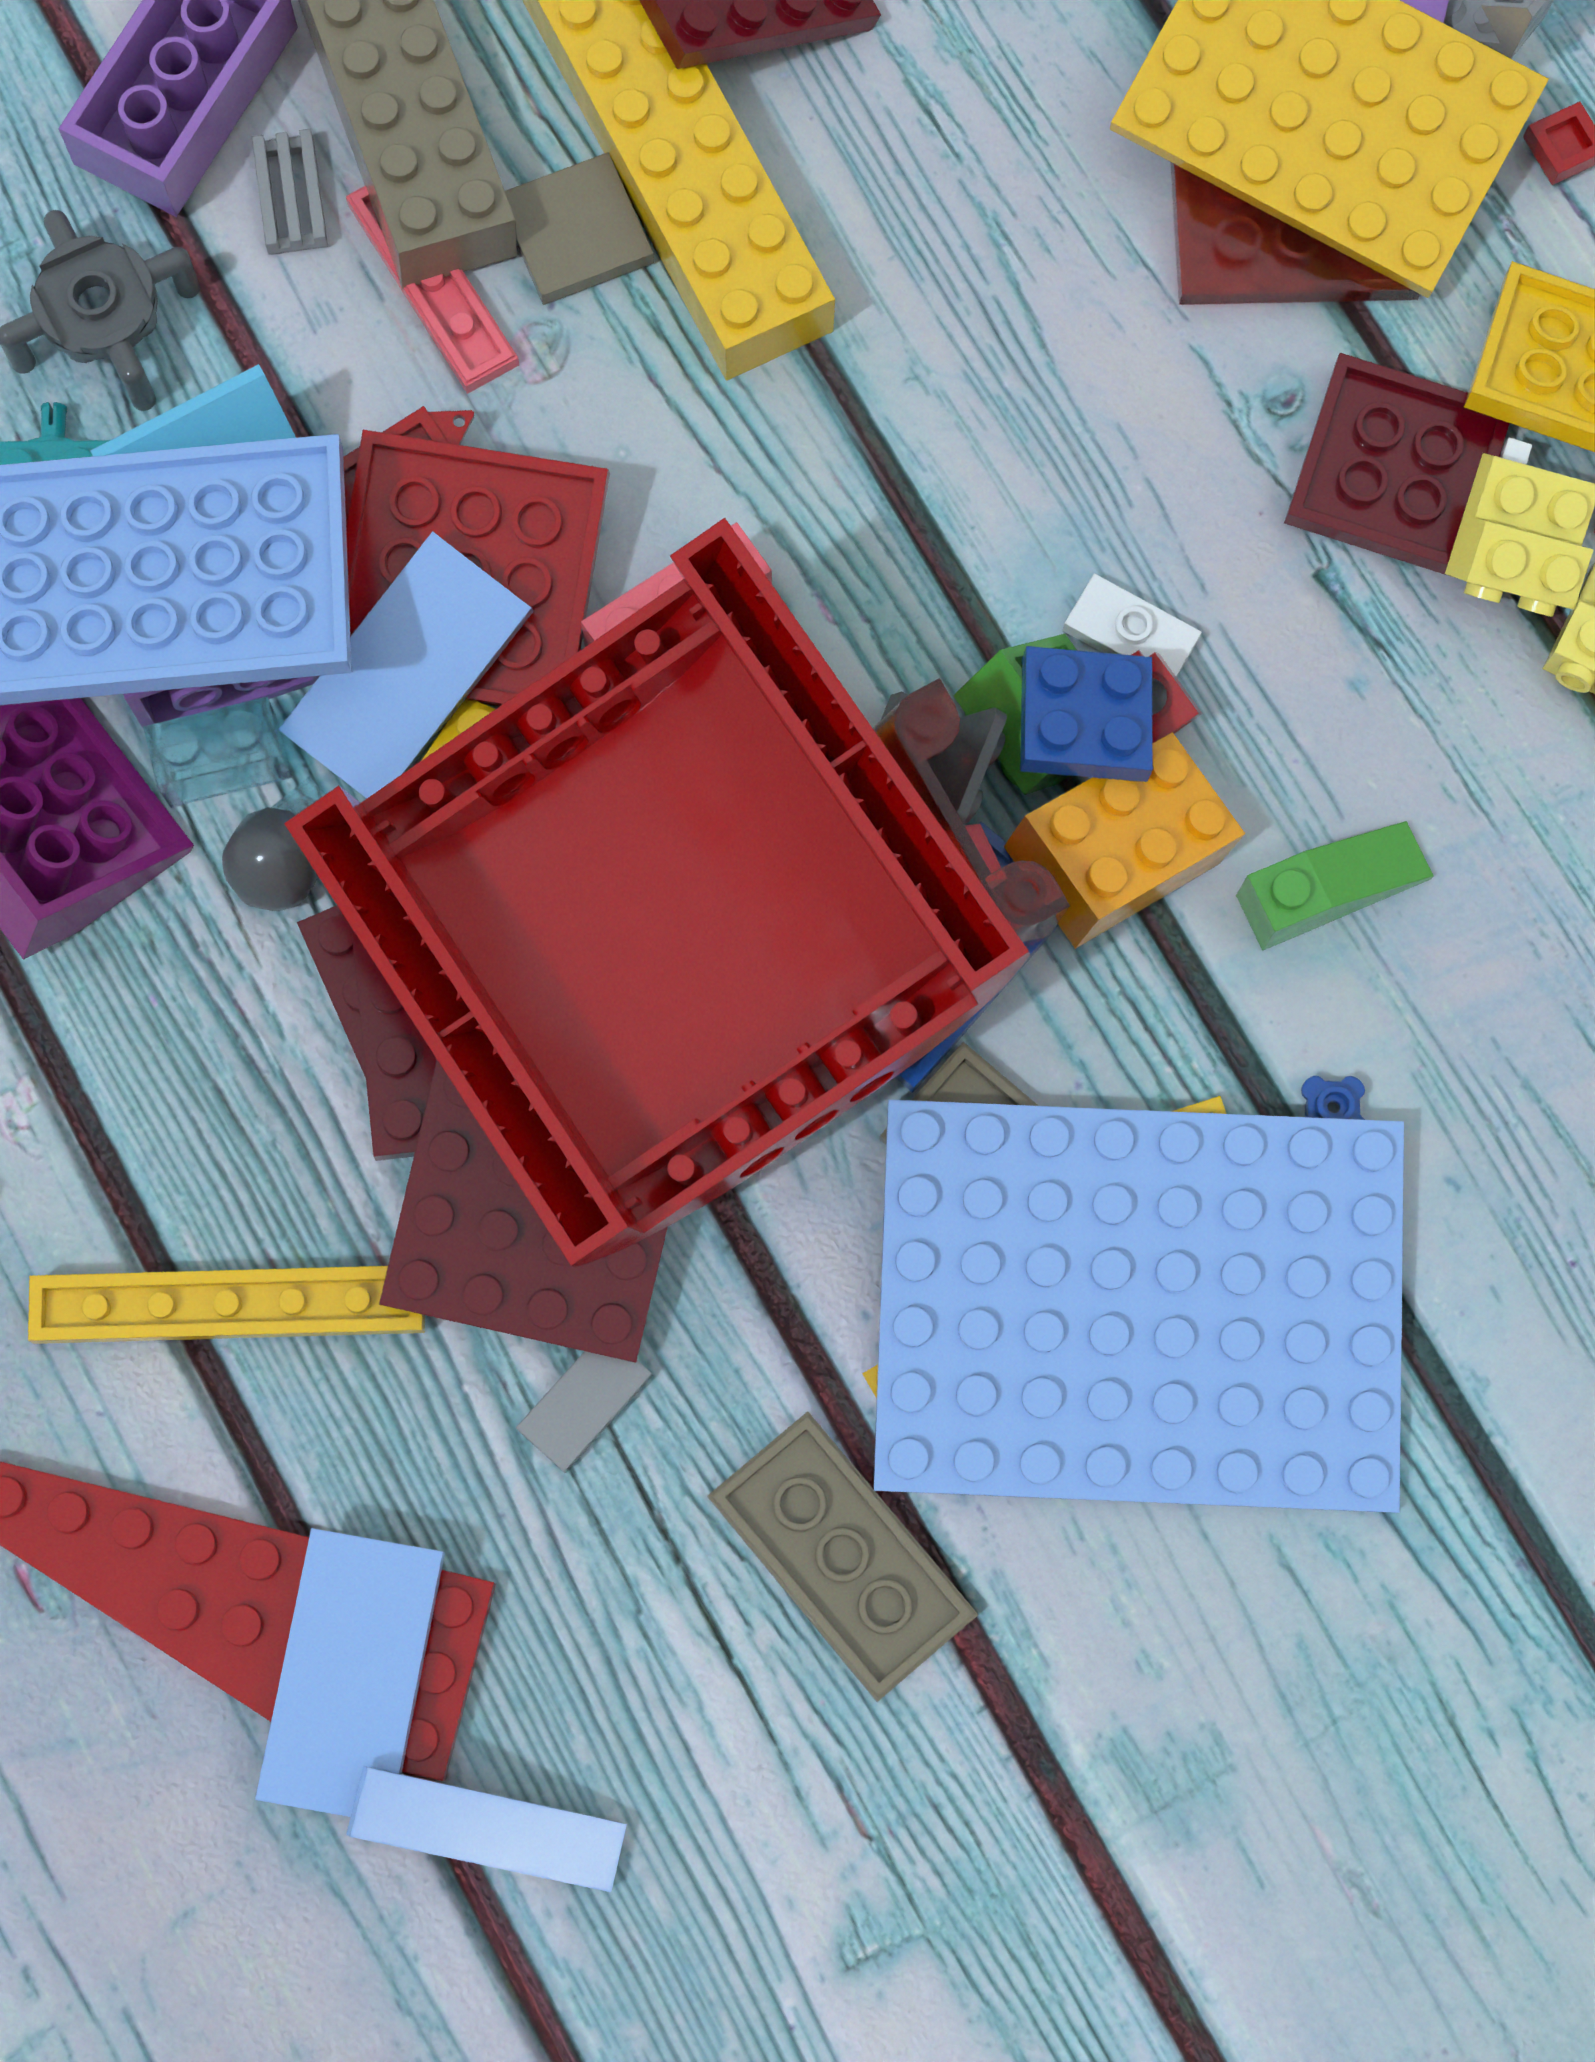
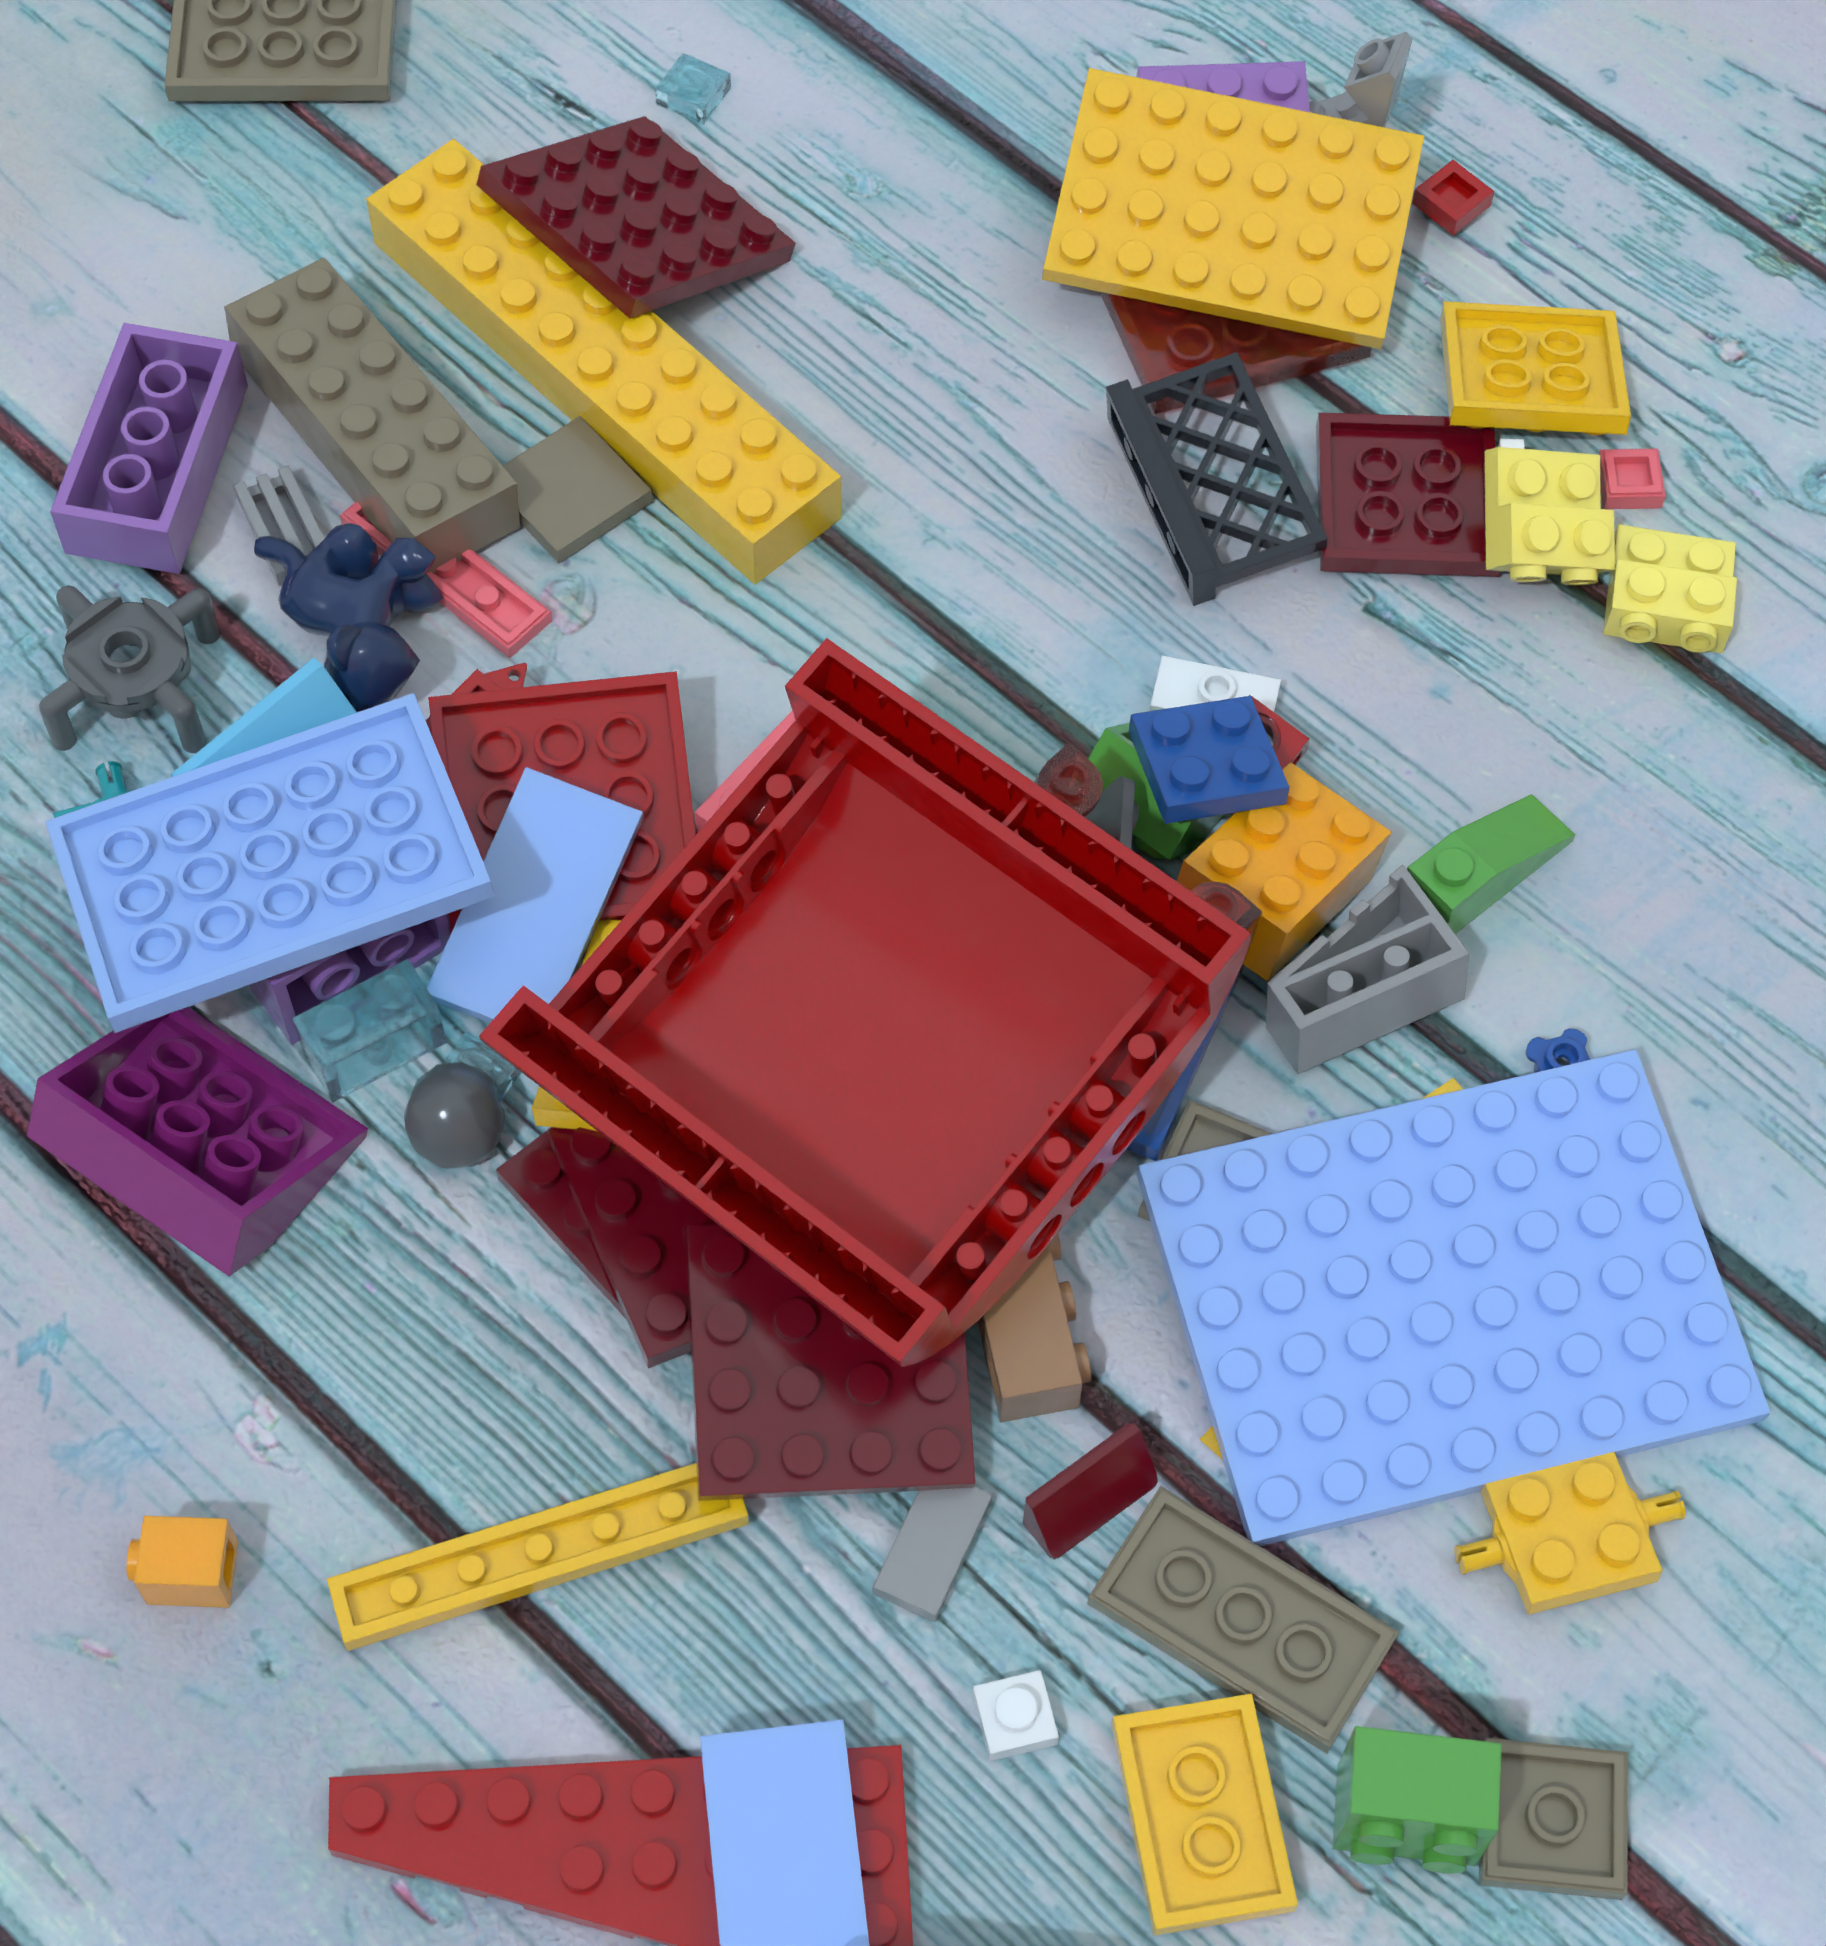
camera: 15 degrees left, 15 degrees down
(326, 295) = (353, 599): none -> dark blue animal
(606, 1583) = (1015, 1715): none -> white plate
(731, 1240) = (1031, 1346): none -> medium nougat brick
(742, 1399) = (1090, 1492): none -> dark red slope
(742, 1728) = (1203, 1814): none -> yellow plate
(931, 1782) = (1416, 1798): none -> bright green brick
(1058, 1826) = (1560, 1821): none -> dark tan tile
(1157, 392) = (1172, 503): none -> black fence
(1171, 1568) = (1570, 1533): none -> yellow plate
(1172, 973) = (1368, 977): none -> light grey wedge

